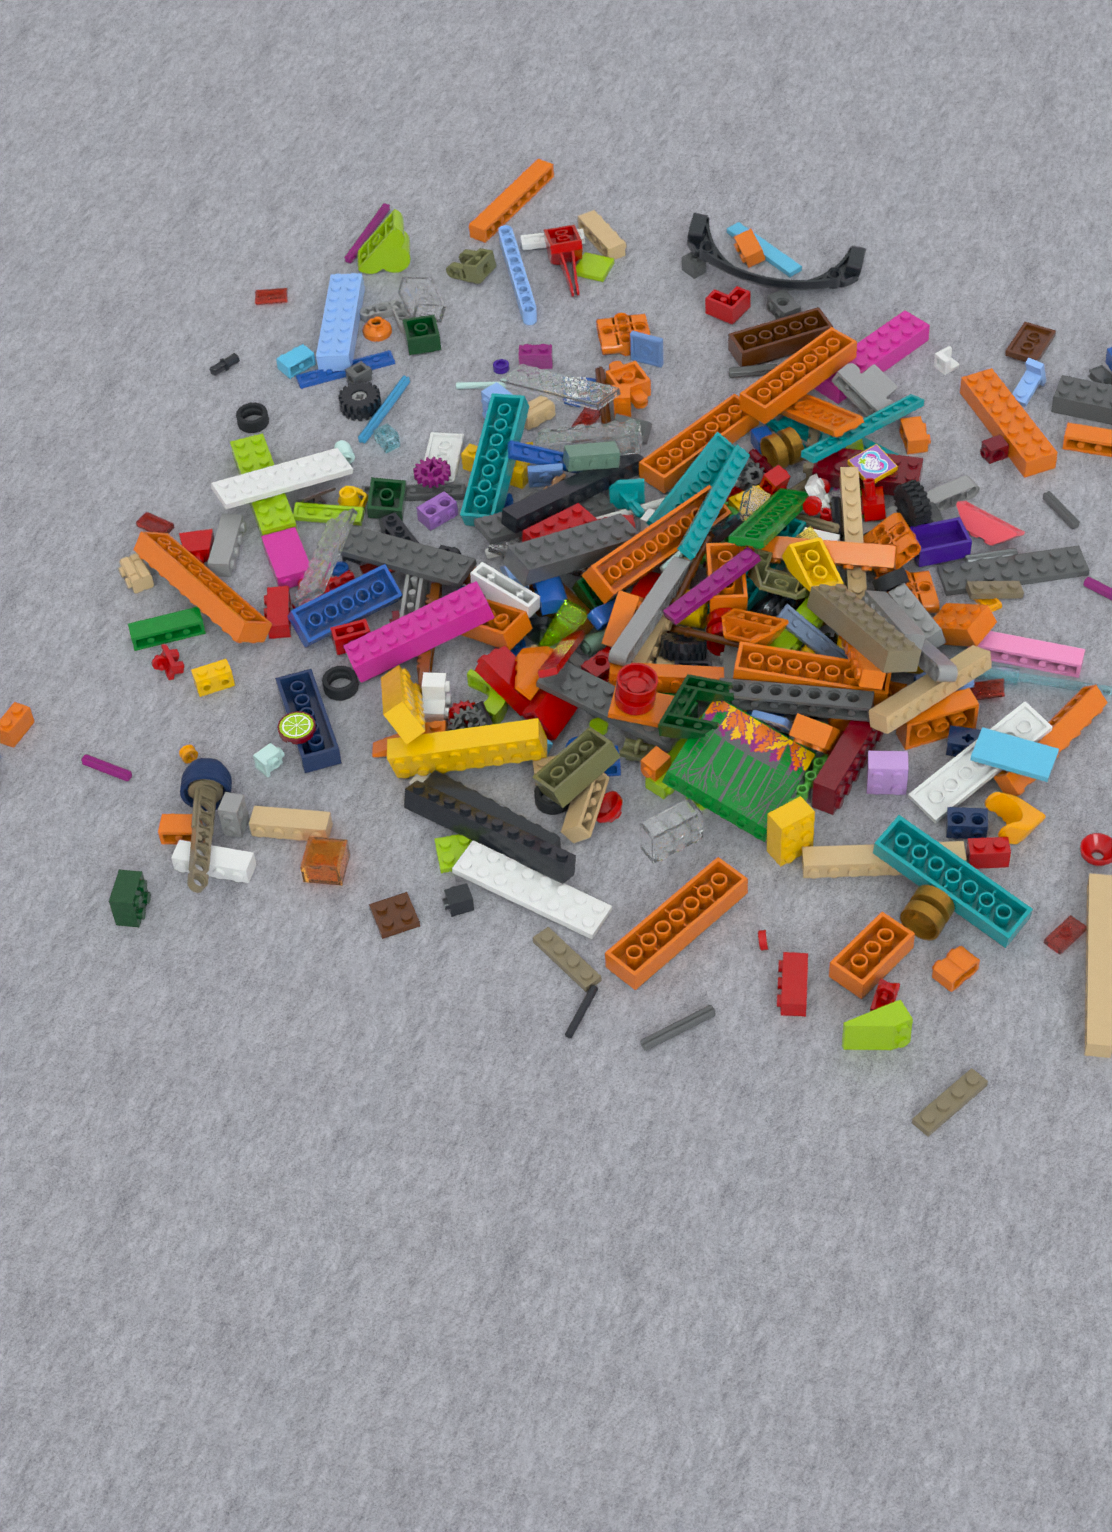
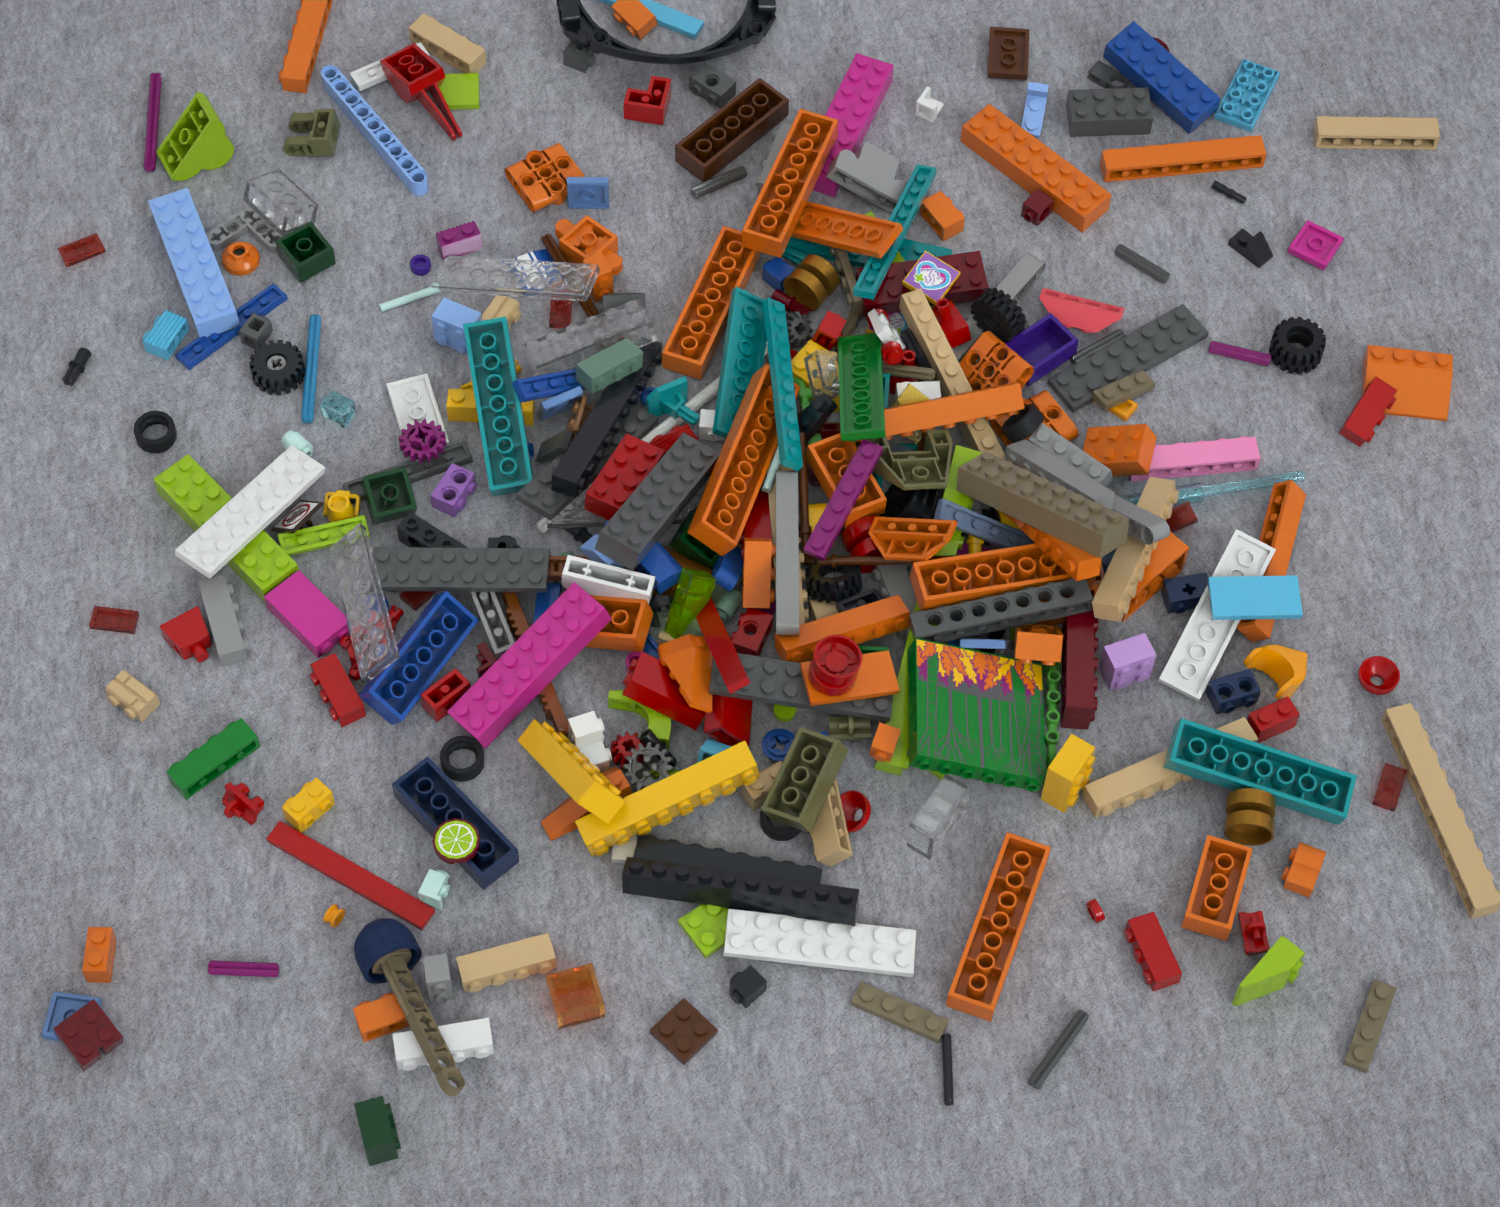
camera: 30 degrees left, 10 degrees up
(202, 587) = (233, 691): orange brick -> none
(217, 734) = (350, 875): none -> red tile
(675, 720) = (891, 639): dark green wedge -> none
(811, 563) = (942, 439): yellow slope -> none

